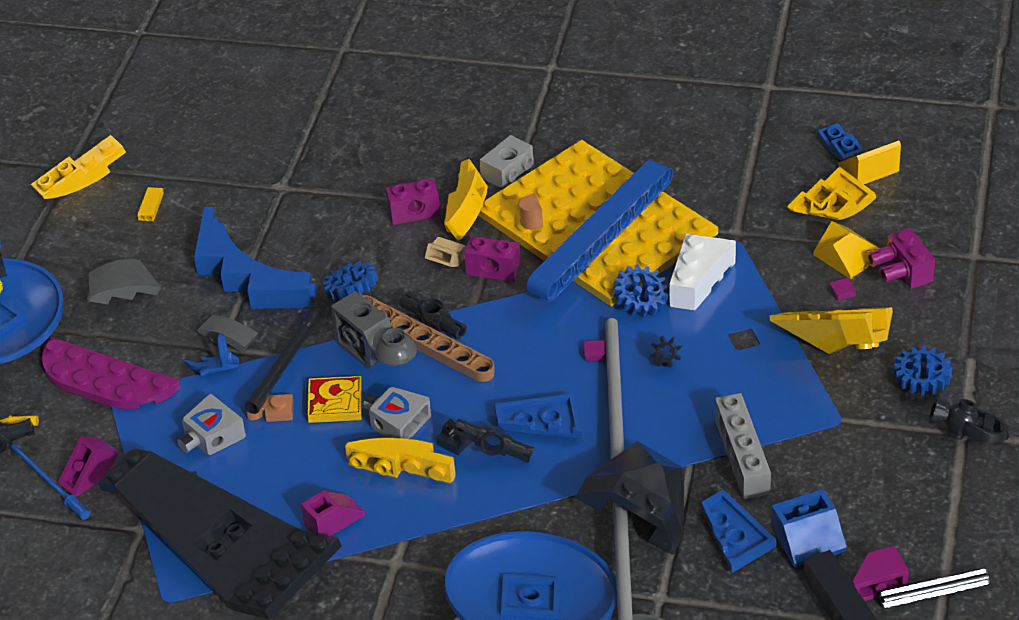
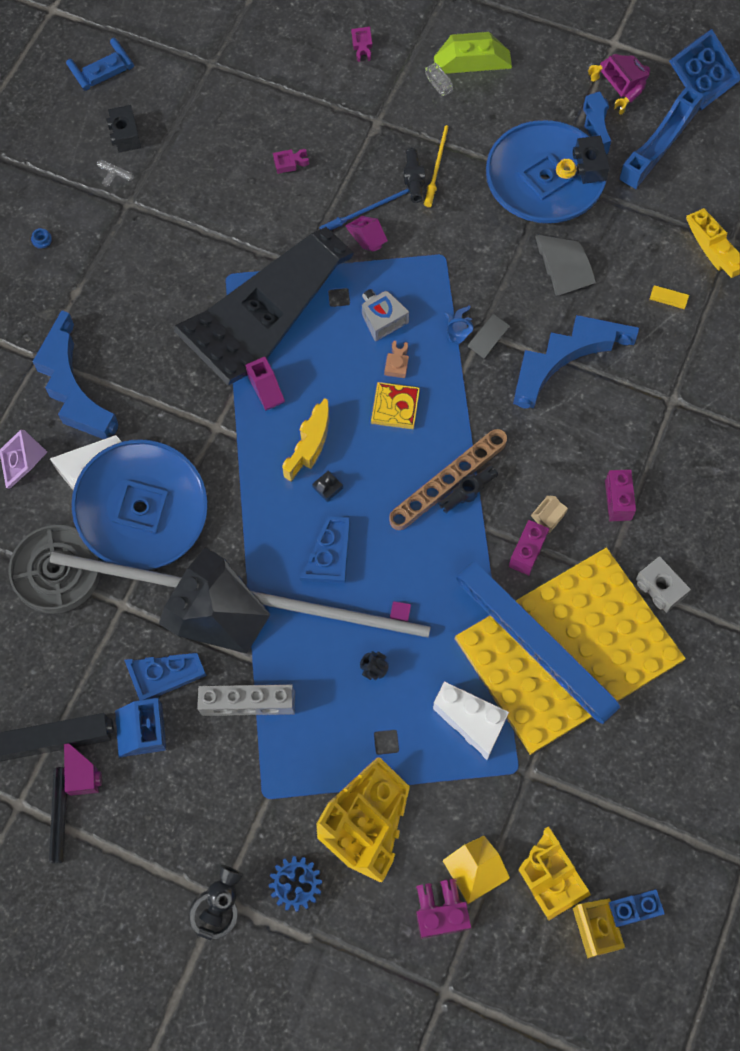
camera: 100 degrees right, 25 degrees up
(104, 377) = (464, 248): magenta plate -> none
(262, 393) = (481, 393): black piece -> none
(350, 279) = (531, 439): blue gear -> none
(369, 334) = (442, 433): dark grey brick -> none
(398, 412) = (359, 444): light grey torso -> none
(466, 201) = (609, 539): yellow slope -> none
(506, 446) = (304, 507): black pin -> none
(530, 212) = (572, 584): nougat brick -> none
(651, 299) = (465, 651): blue gear -> none
(842, 289) = (427, 848): magenta piece -> none

